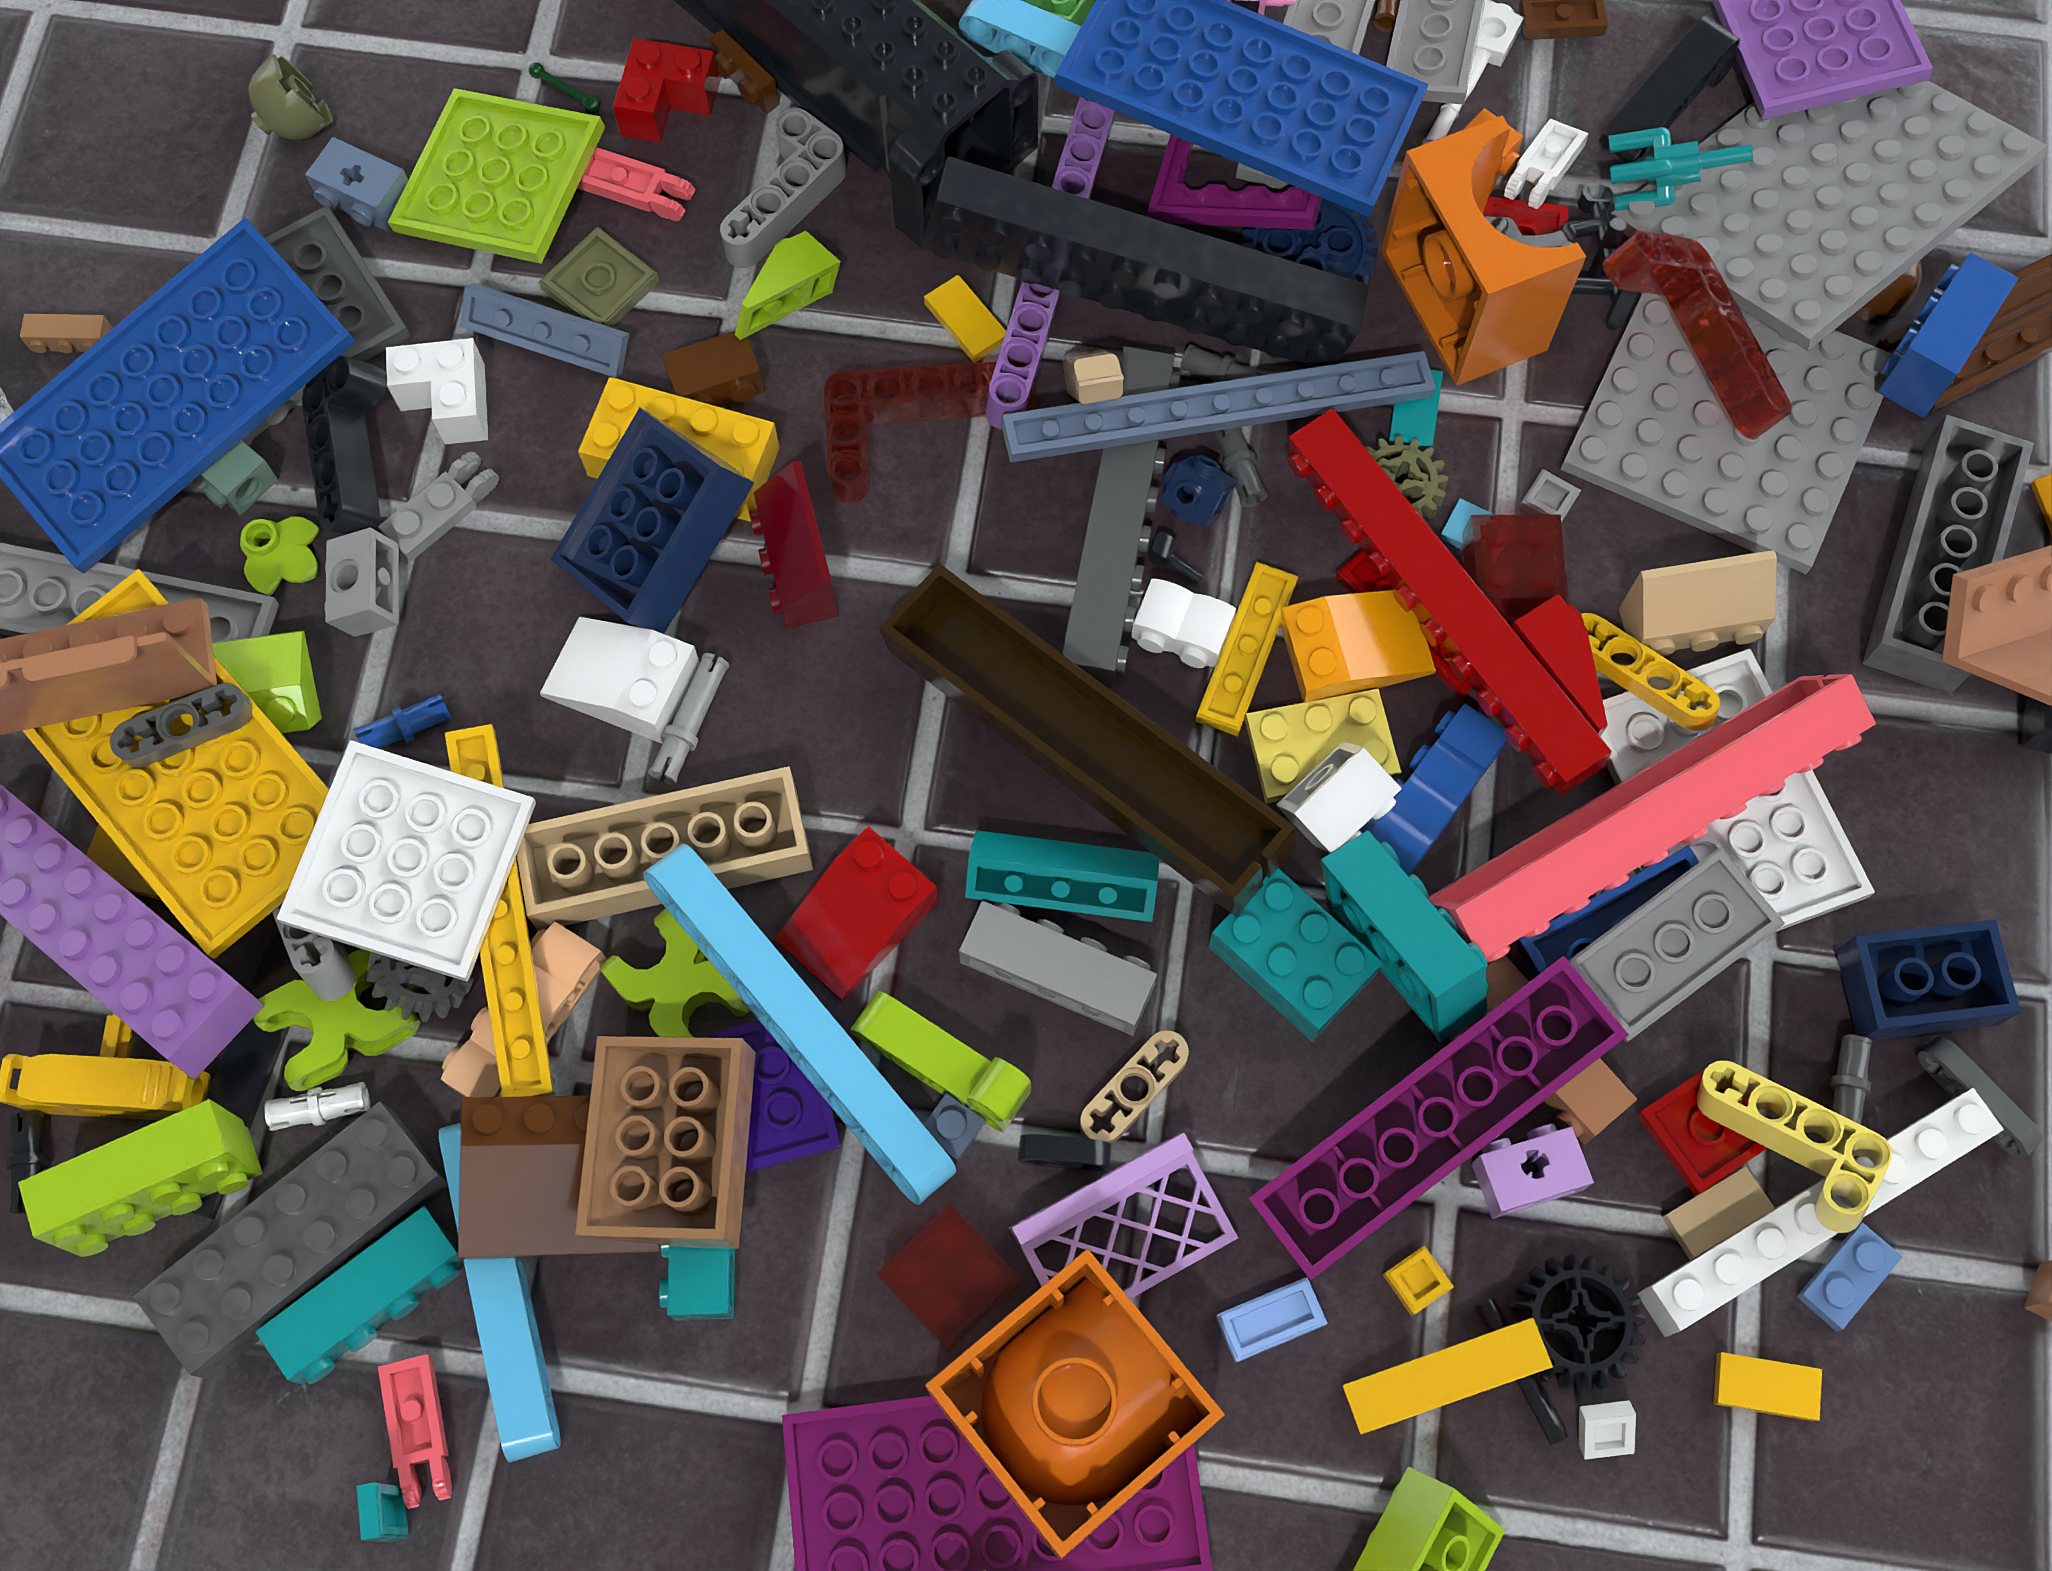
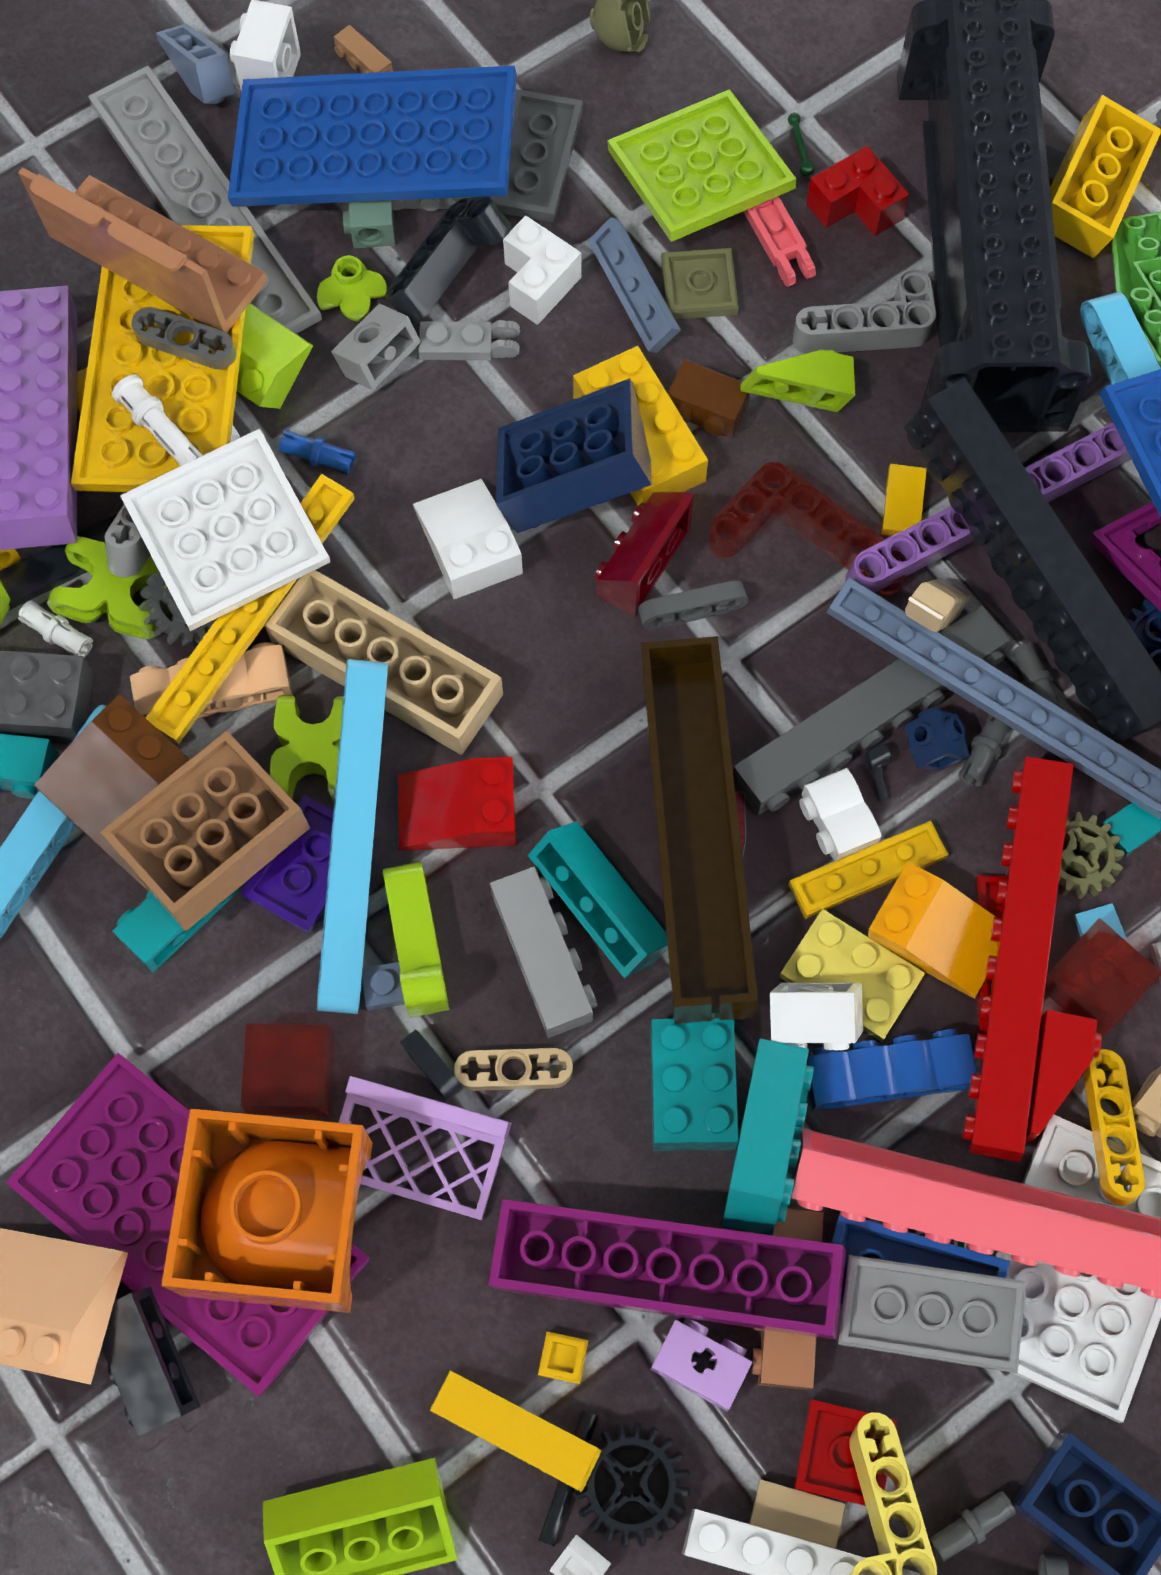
camera: 45 degrees right, 0 degrees up
(221, 821) = (149, 413): none -> white pin
(356, 183) = (612, 100): sand blue brick -> none
(681, 735) = (480, 597): light grey pin -> none
(751, 79) = (919, 236): reddish brown plate -> none
(881, 560) = (692, 605): none -> dark grey beam
(1271, 1320) = (450, 1288): light blue tile -> none

